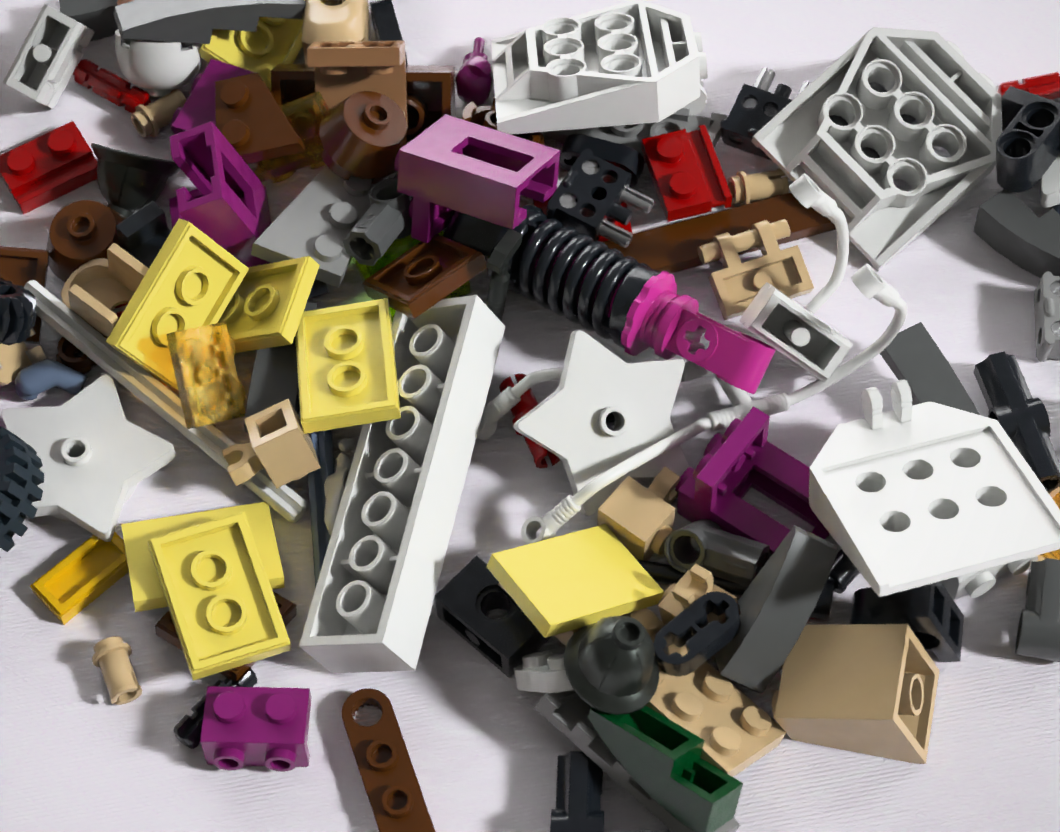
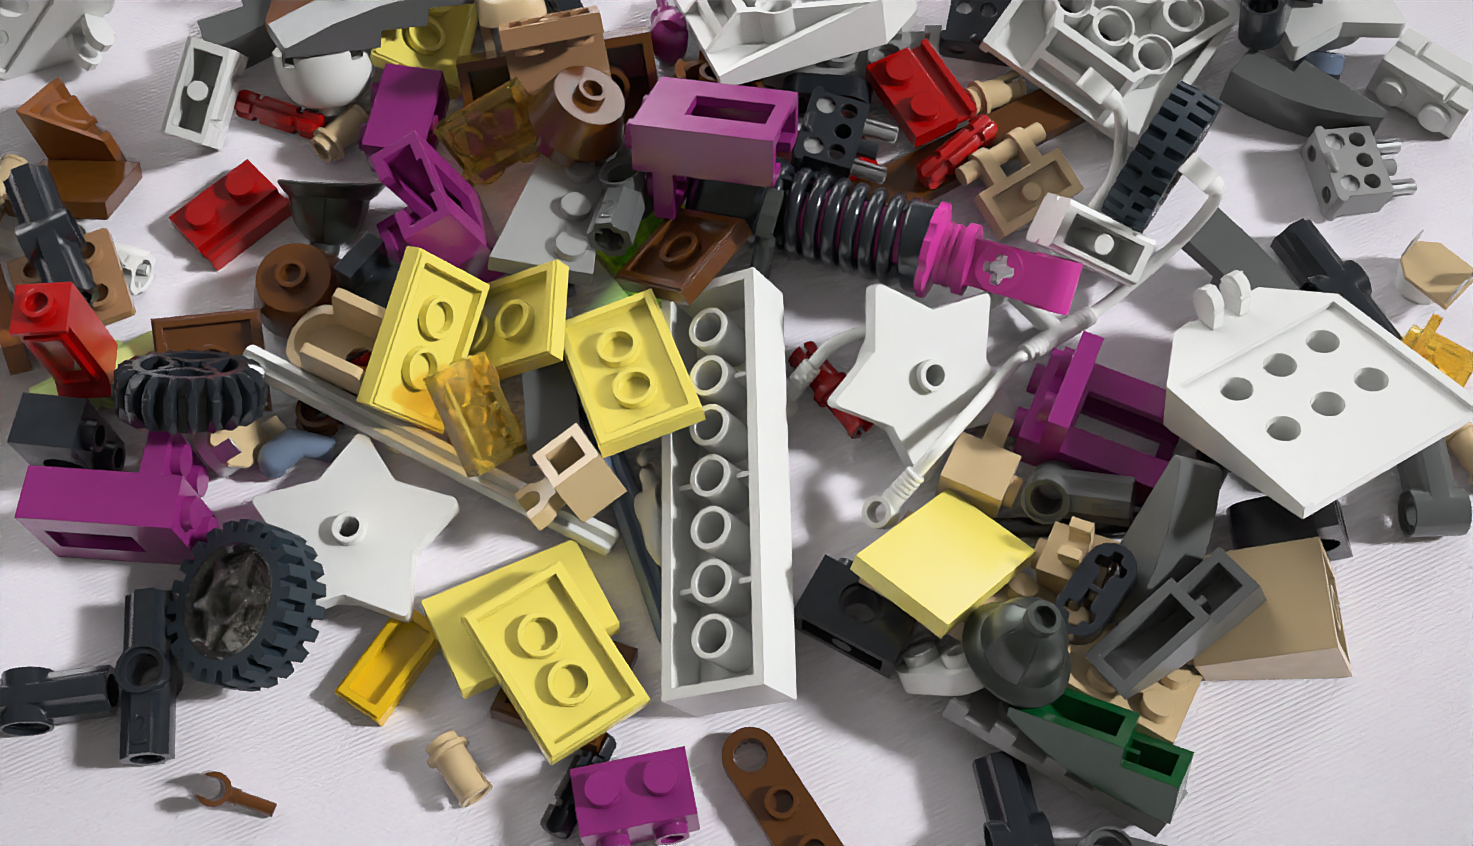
camera: 15 degrees left, 5 degrees up
(254, 119) = (453, 120): reddish brown wing -> none
(703, 230) = (956, 151): none -> red axle
(760, 673) = (1176, 624): none -> dark grey slope
(899, 250) = (1160, 152): none -> black wheel

